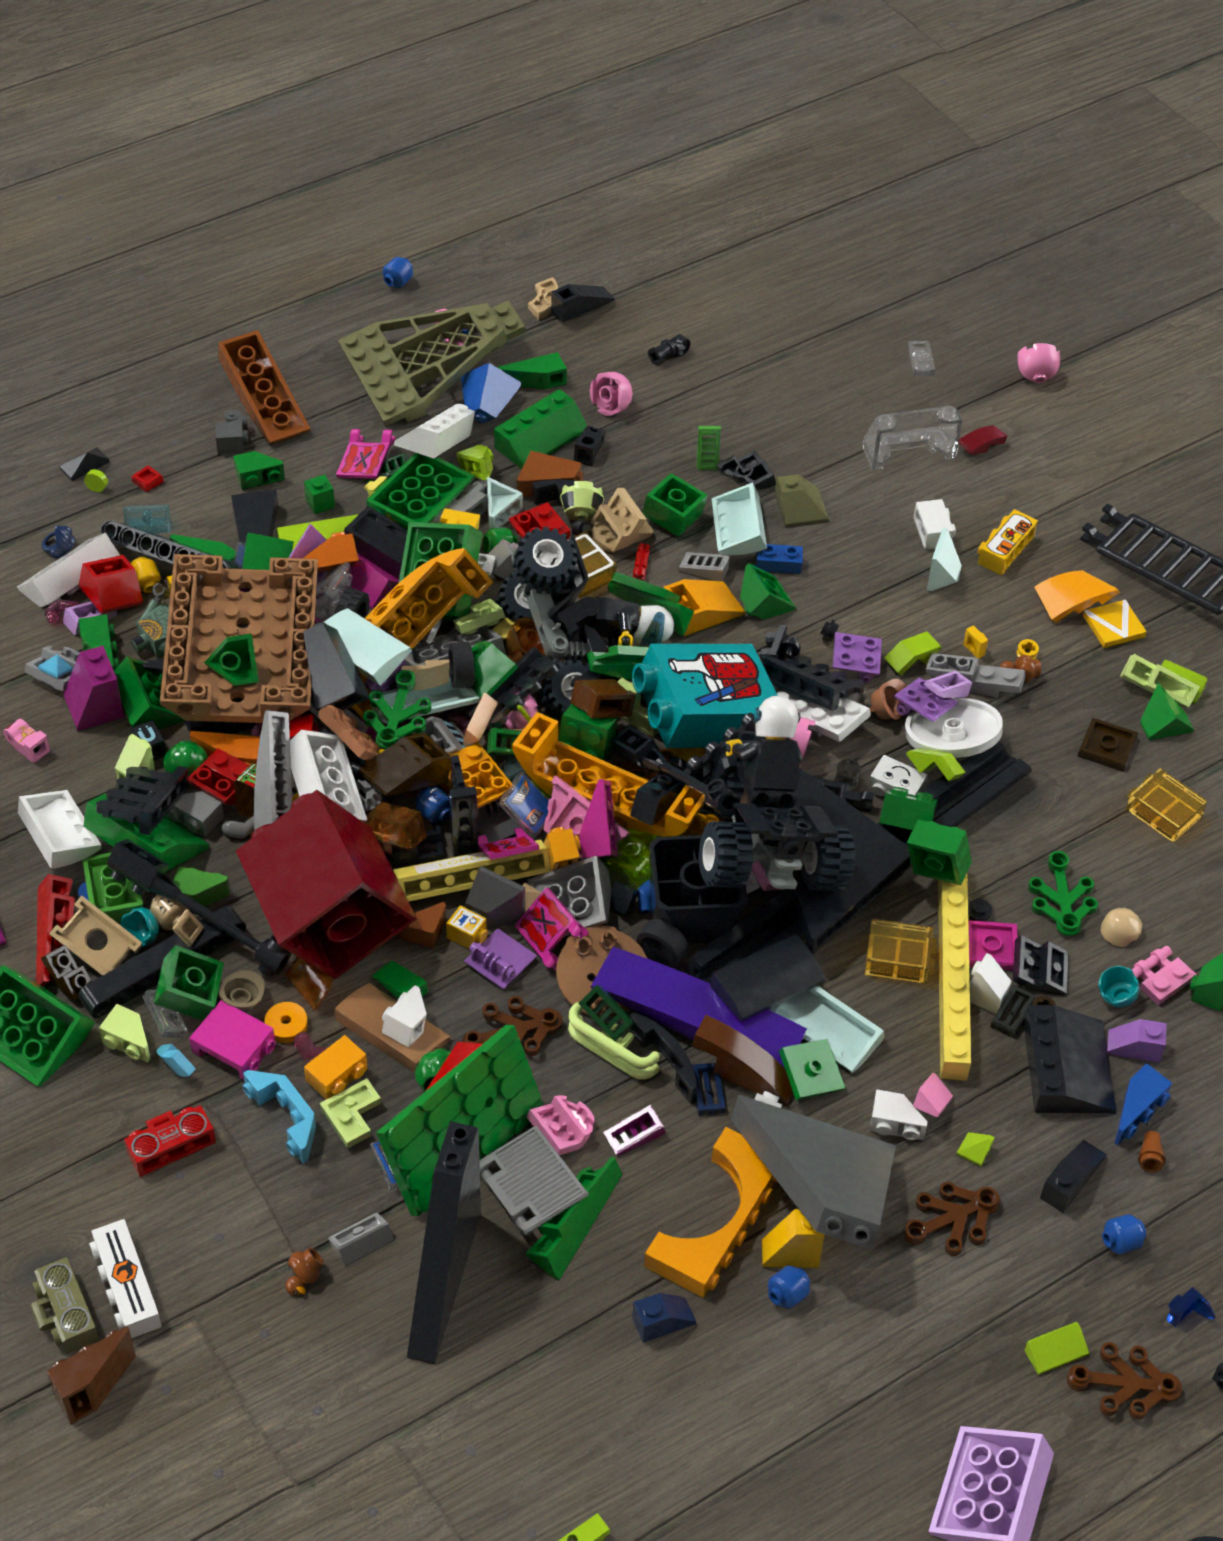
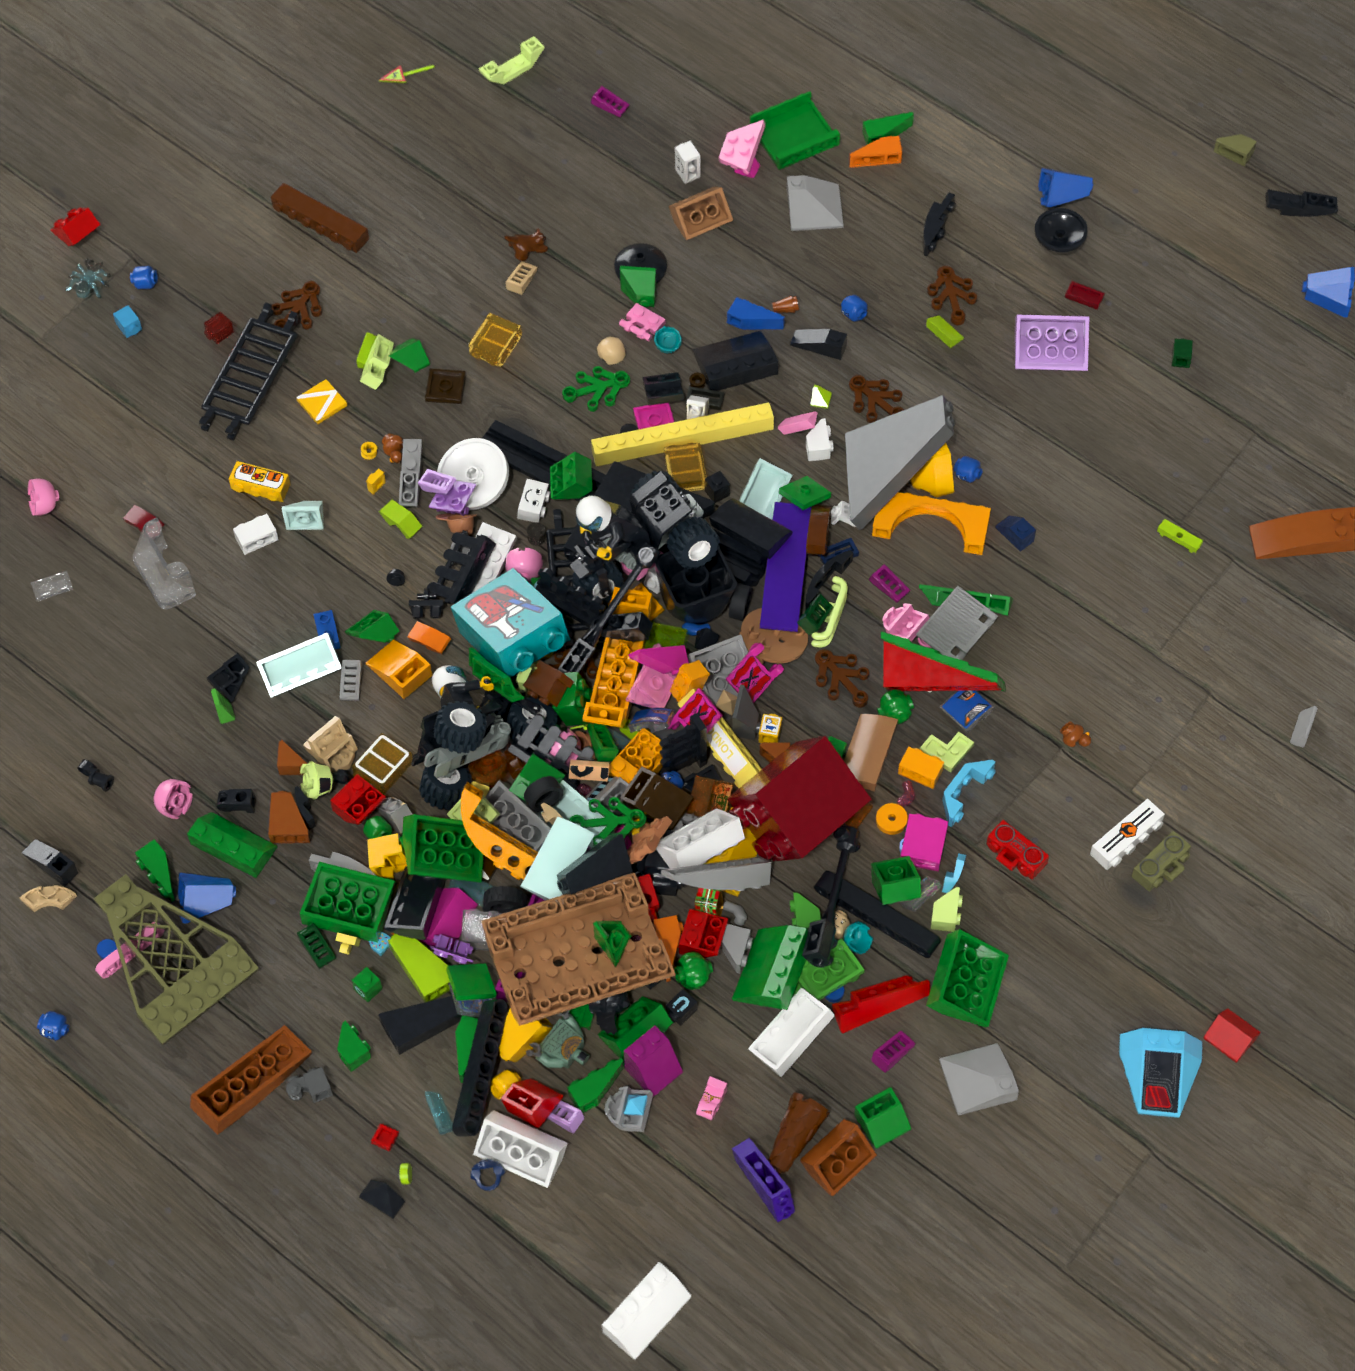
camera: 105 degrees left, 10 degrees up
(53, 611) = (560, 1134): clear pink arm -> none
(65, 972) = (915, 970): dark brown slope -> none
(90, 1375) = (1204, 818): reddish brown slope -> none
(91, 919) = (890, 953): tan piece -> none
(135, 753) = (712, 1000): yellowish green slope -> none
(144, 796) = (753, 950): black fence -> none
(188, 927) = (853, 897): tan slope -> none
(242, 990) = (884, 847): dark tan piece -> none
(334, 552) = (456, 934): orange slope -> none
(361, 1238) = (1033, 715): light grey slope -> none
(364, 459) = (308, 968): dark pink flag -> none
(406, 1018) = (867, 732): white slope -> none
(439, 432) = (271, 910): white slope -> none
(448, 1238) = (1034, 635): black slope -> none
(476, 461) = (294, 871): lime slope -> none
(499, 958) = (785, 702): medium lavender hinge -> none
(502, 503) = (339, 841): light aqua slope -> none
(633, 486) = (288, 760): none -> dark orange slope
(641, 561) = (362, 726): red axle -> none
(646, 594) = (413, 697): green wedge -> none
(674, 504) = (296, 713): green brick -> none
(737, 635) = (429, 637): none -> orange slope
(799, 501) = (258, 633): olive slope -> none
(855, 975) = (717, 486): none -> black brick
(857, 655) = (419, 550): medium lavender hinge -> none
(927, 759) = (517, 475): lime slope -> none
(939, 852) = (613, 441): green brick -> none
(1073, 592) = (304, 428): light orange slope -> none
(1138, 1040) = (704, 324): medium lavender slope -> none
(1183, 1305) = (889, 271): clear blue plate -> none

